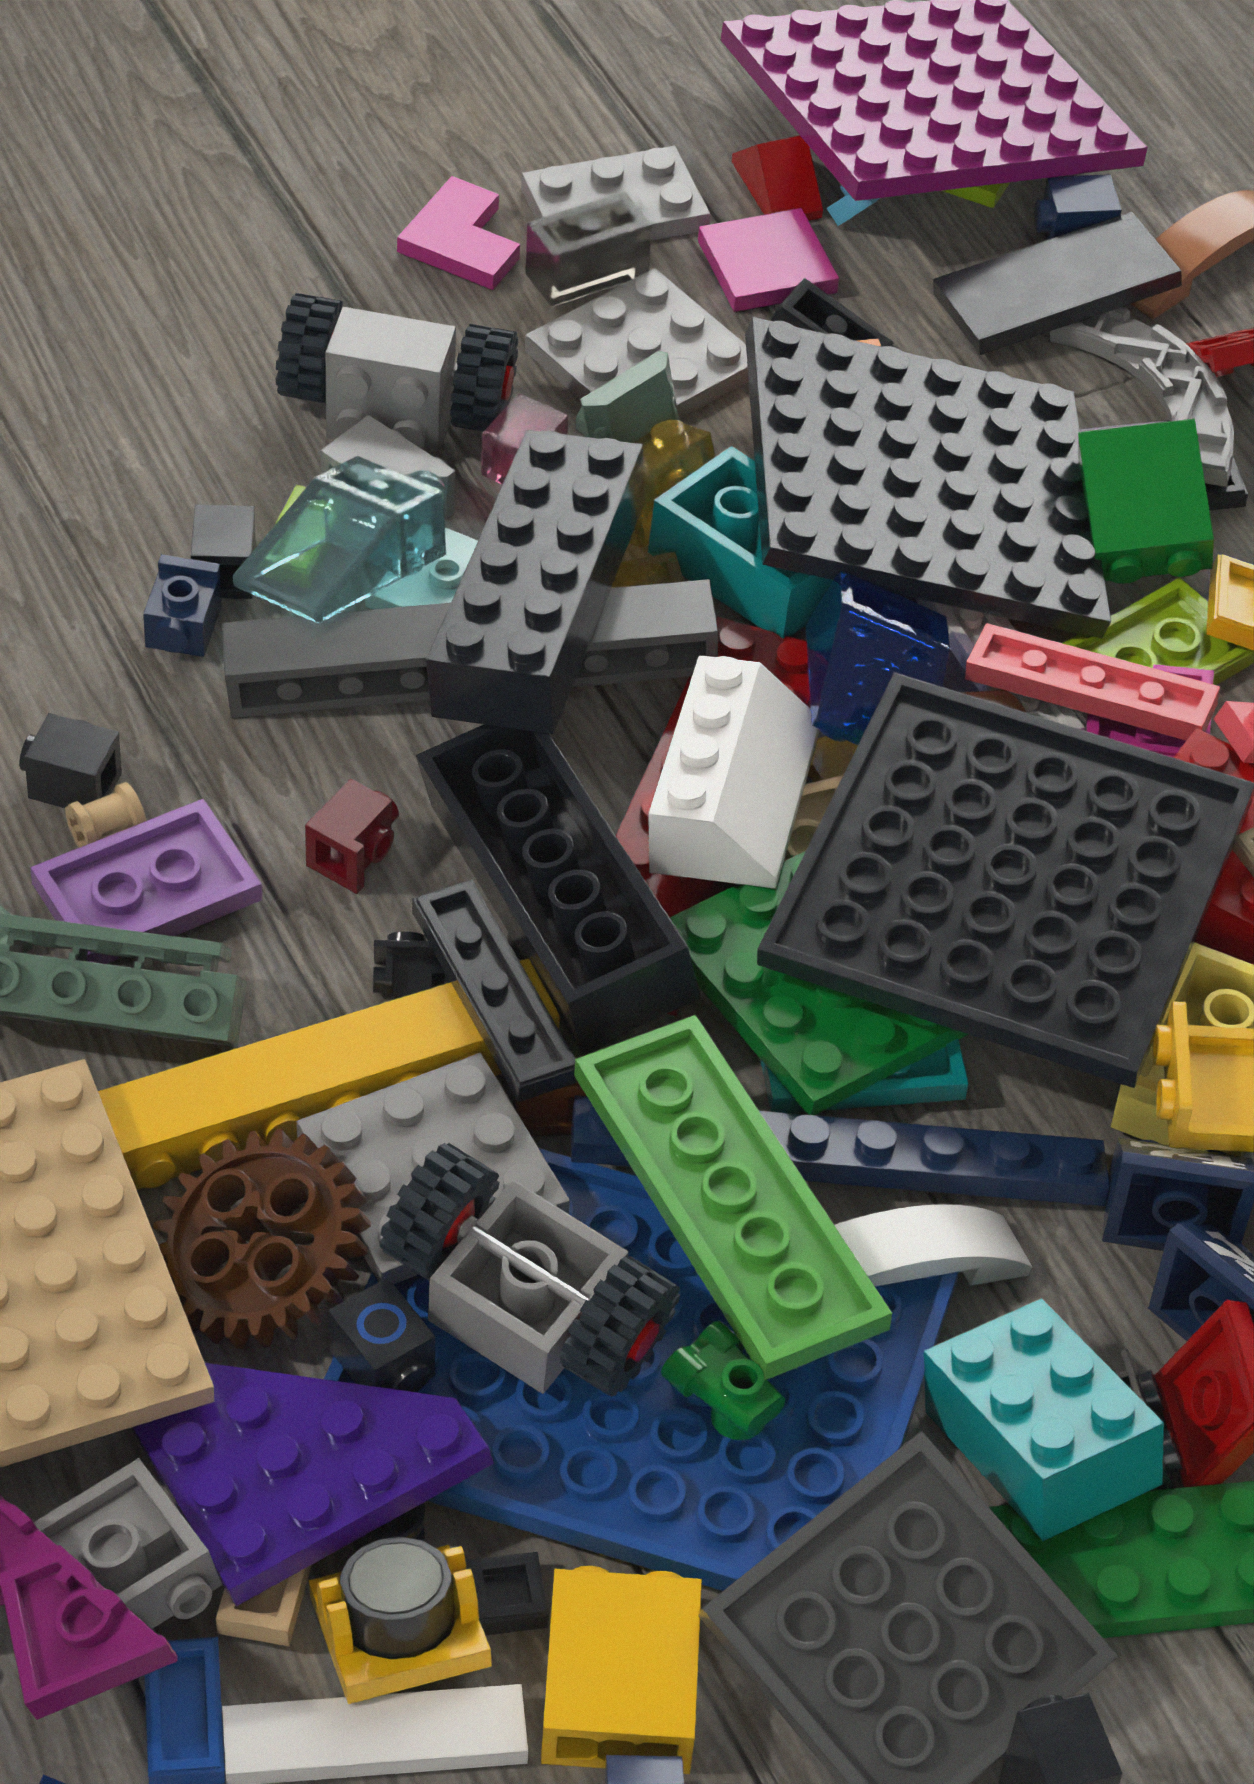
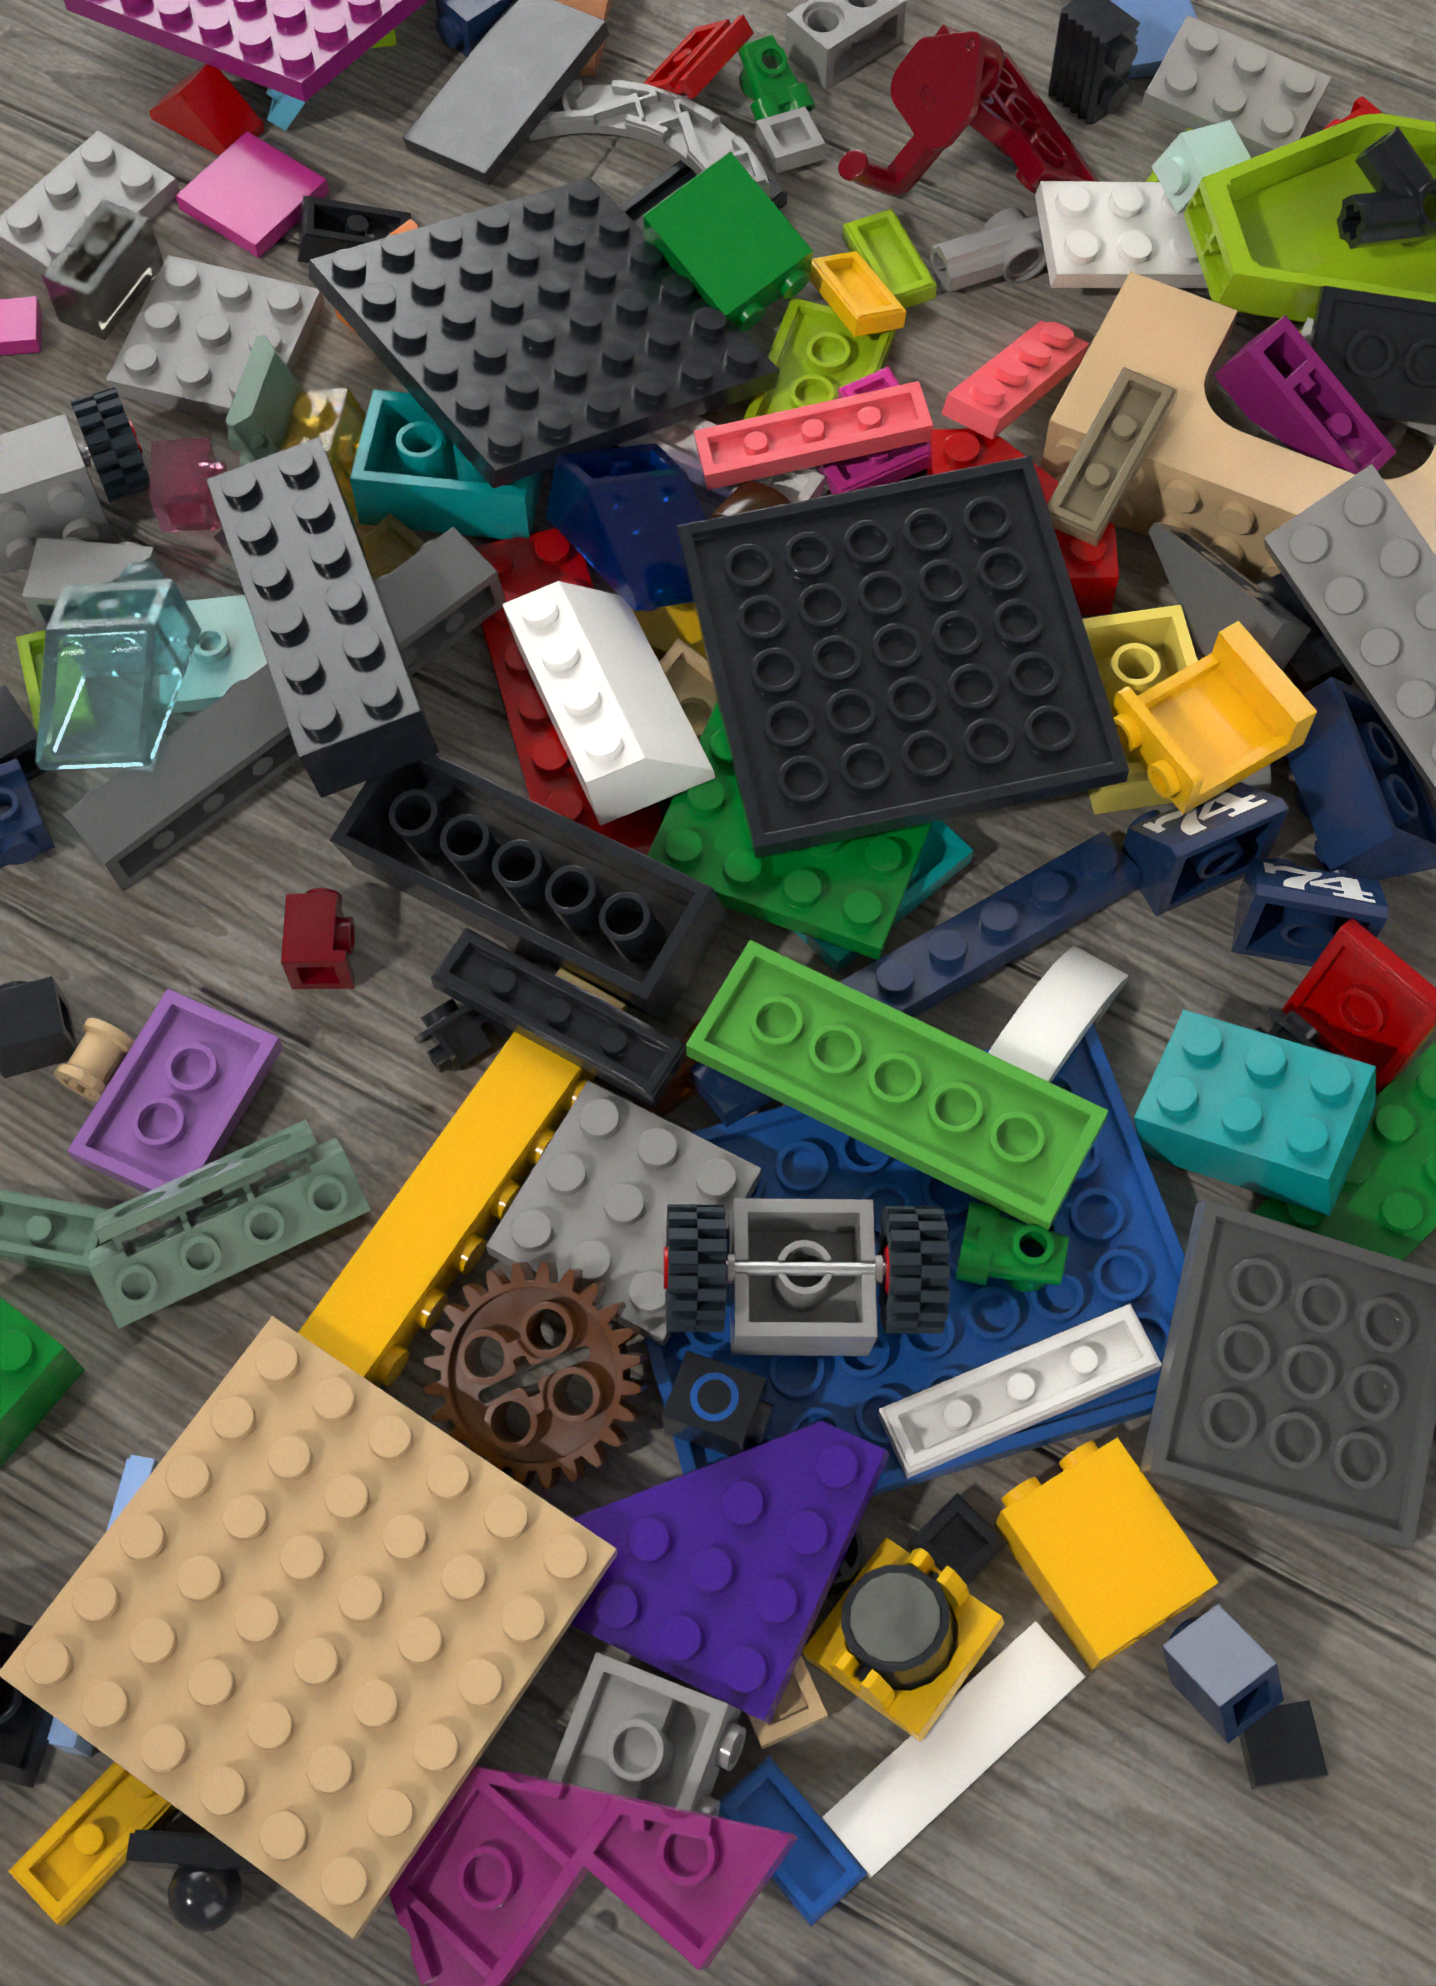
camera: 30 degrees left, 15 degrees up
(648, 1496) = (1018, 1390): none -> white tile

